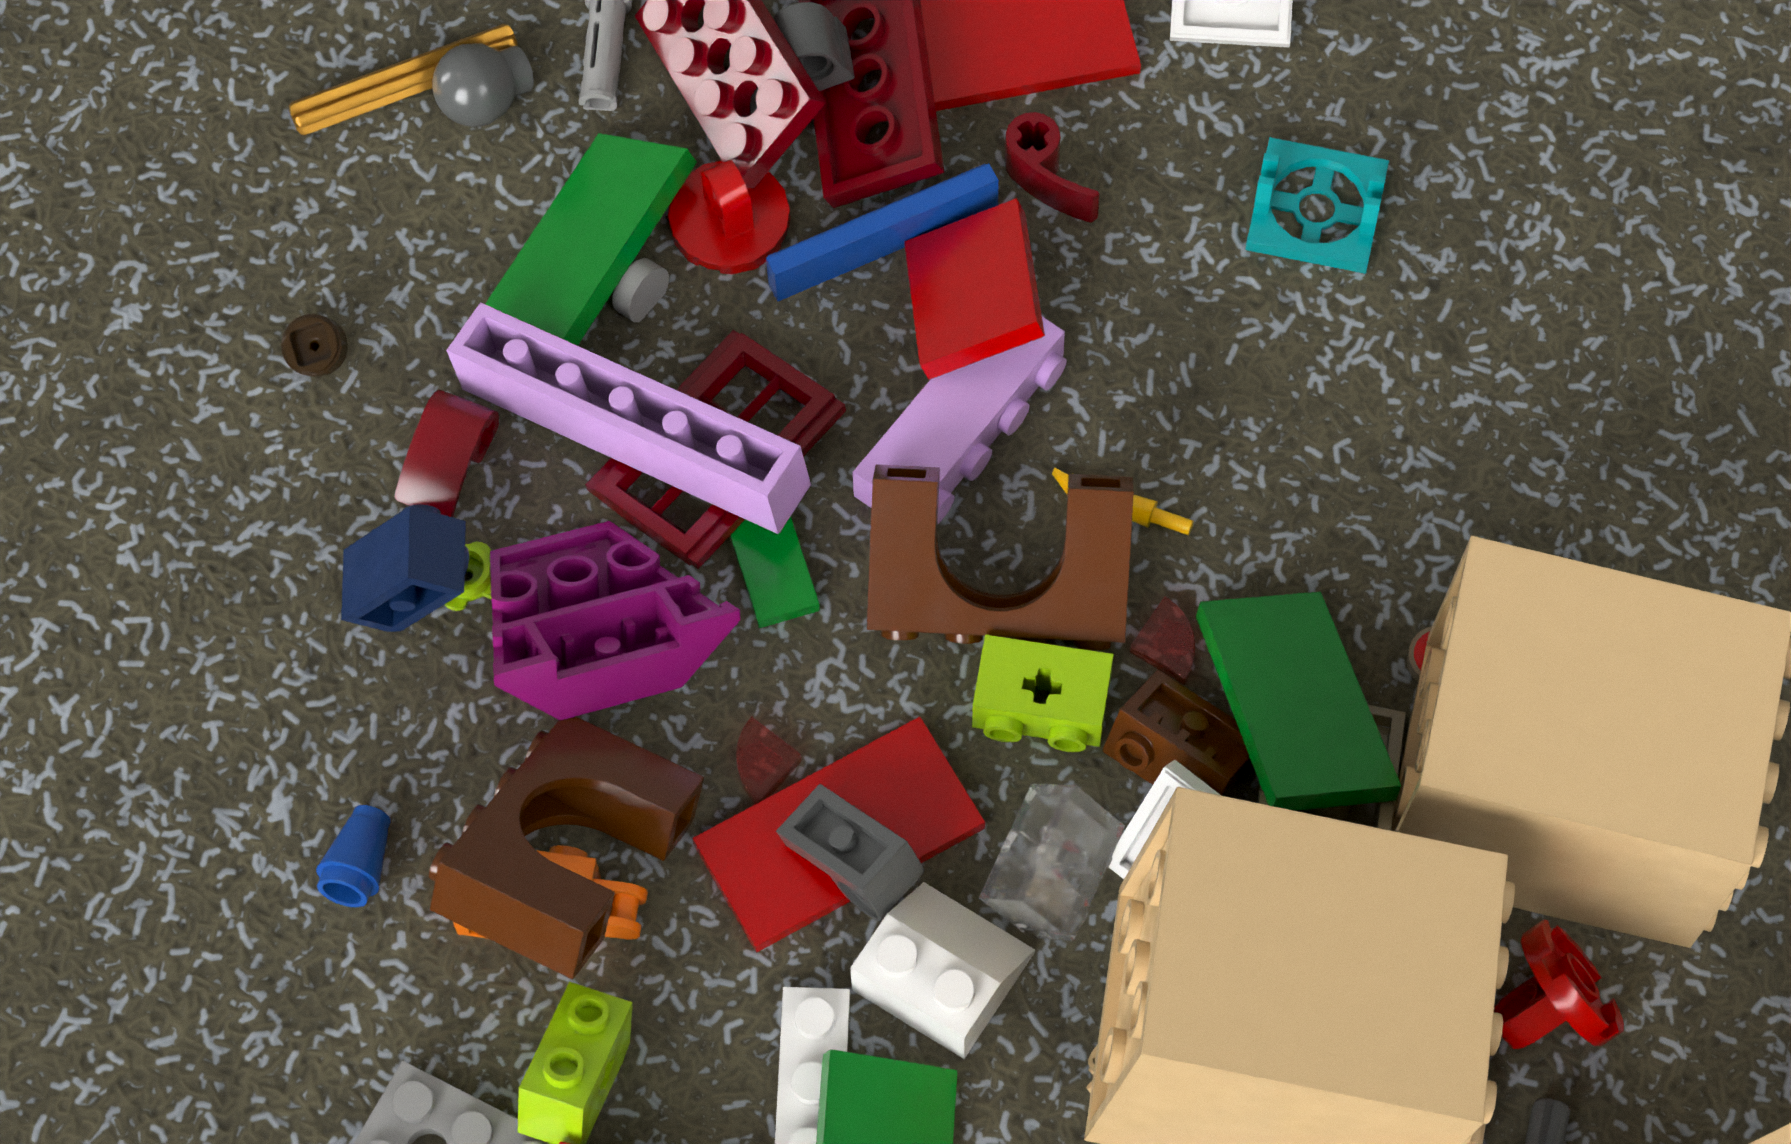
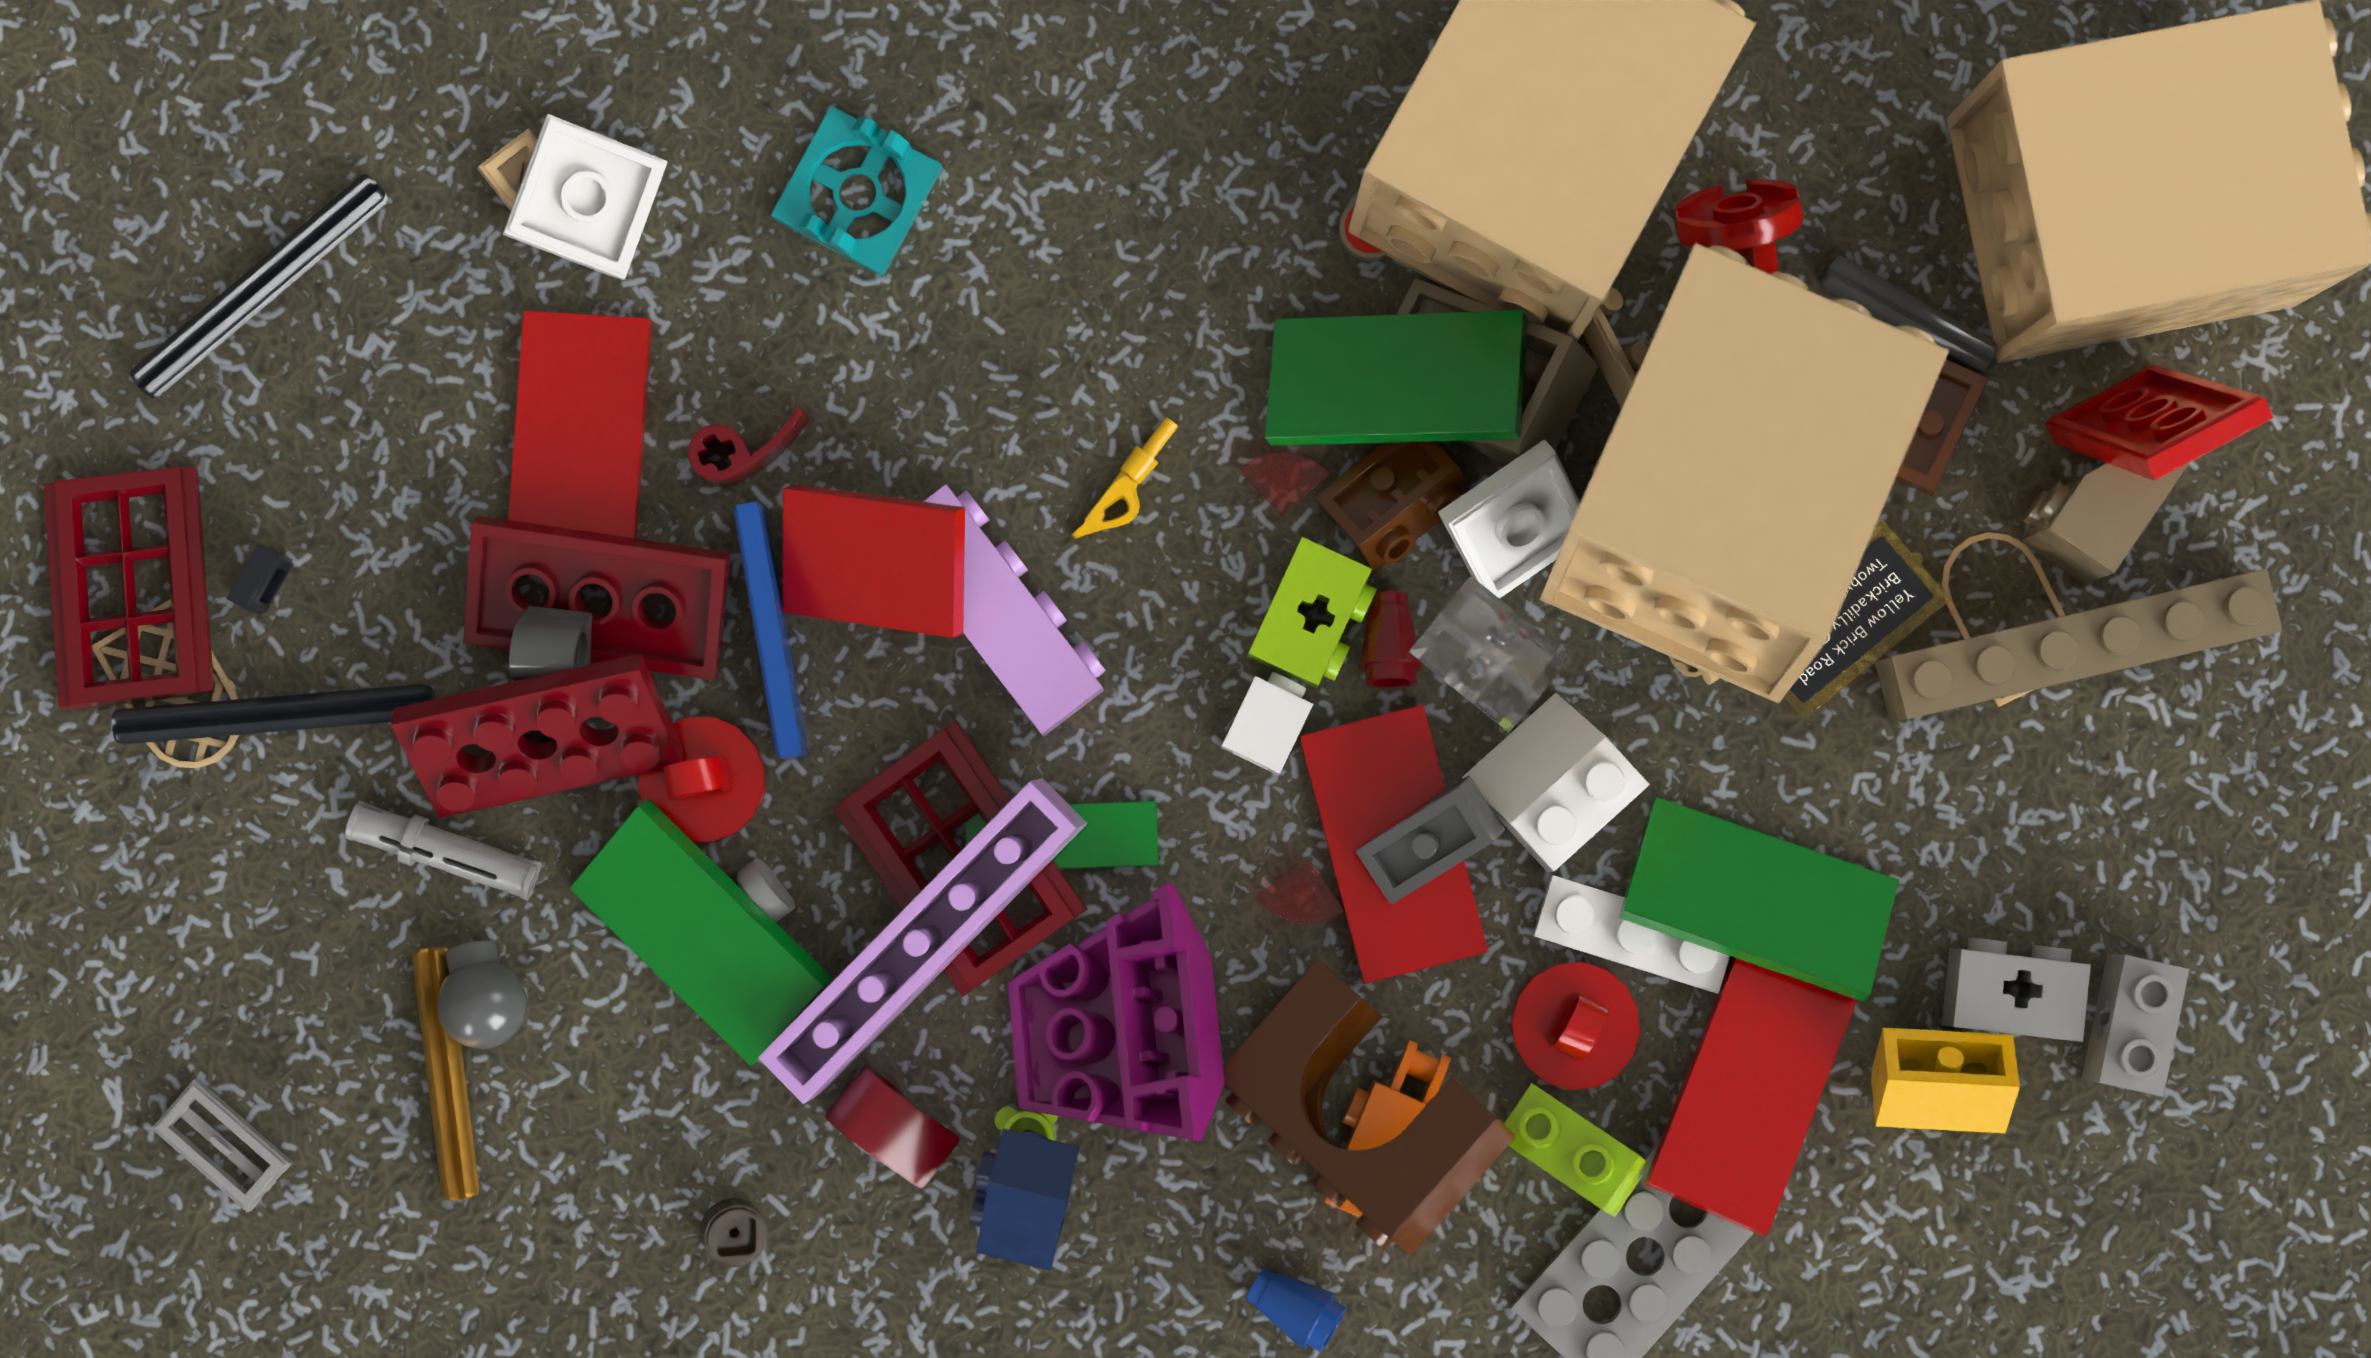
camera: 70 degrees left, 20 degrees up
(703, 1053) = (1575, 1025): none -> red tile
(918, 593) = (1230, 560): reddish brown arch -> none
(923, 680) = (1268, 722): none -> white brick
(1020, 767) = (1388, 641): none -> dark red cone

